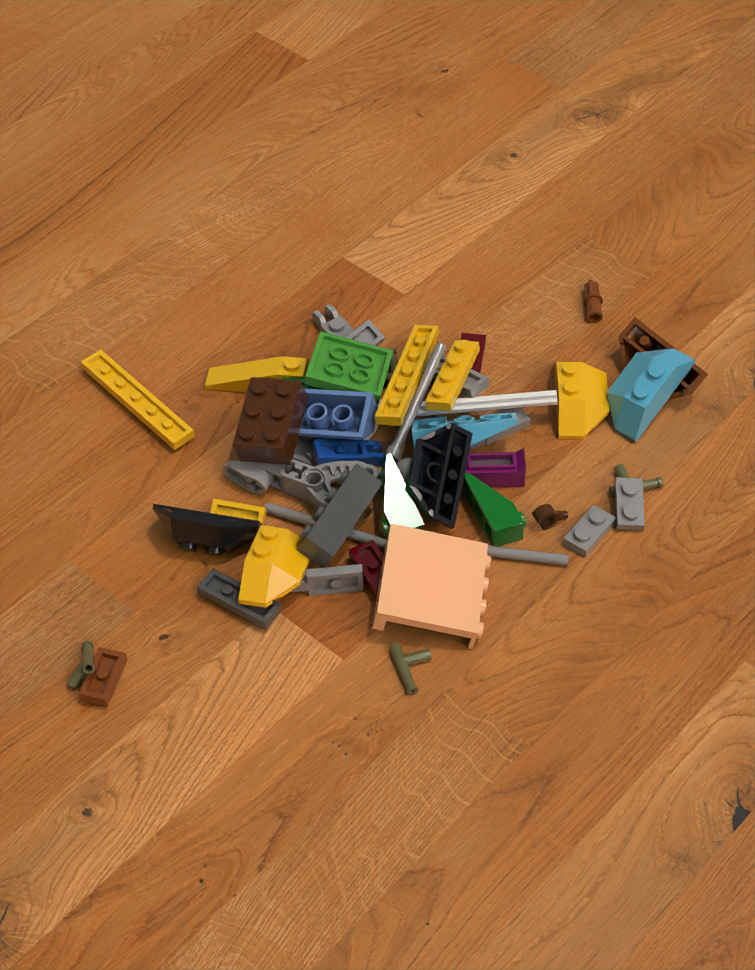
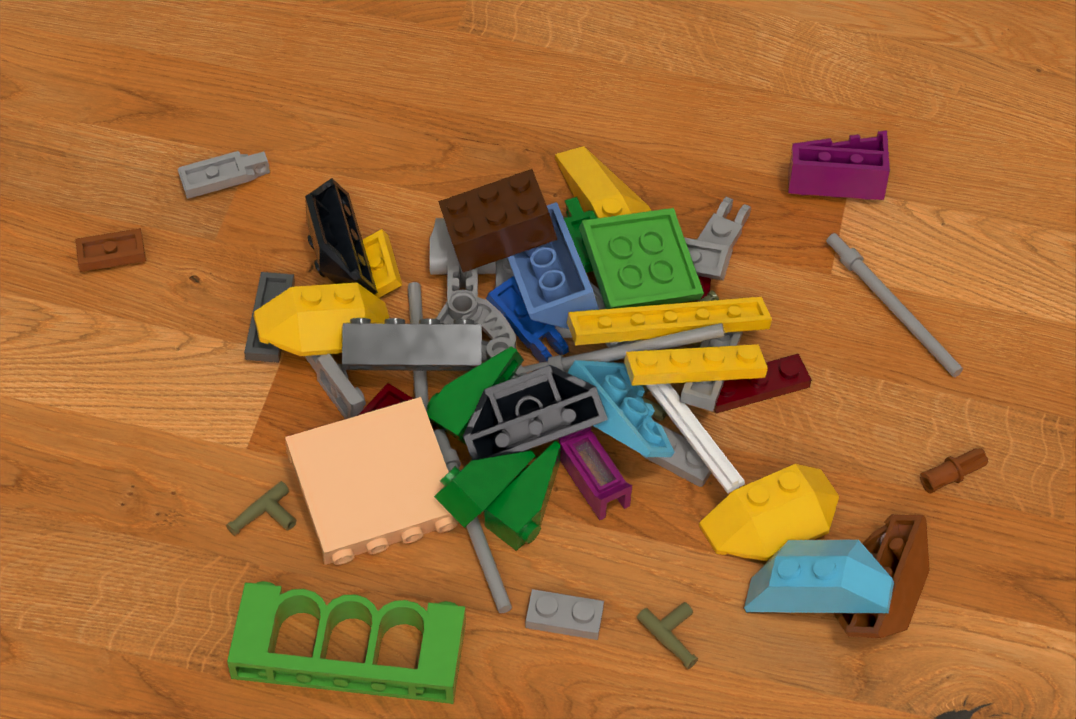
camera: 60 degrees right, 5 degrees up
(78, 581) = (222, 172): none -> light grey hinge
(85, 667) = (119, 224): olive piece -> none
(138, 399) = (492, 106): yellow plate -> none
(334, 245) = (841, 168): none -> magenta wedge
(404, 276) = (854, 262): none -> light grey bar
(480, 524) = (475, 486): none -> green slope
(524, 706) = (267, 607): none -> bright green fence
(547, 516) = (558, 560): reddish brown piece -> none
(629, 504) = (628, 639): light grey plate -> none

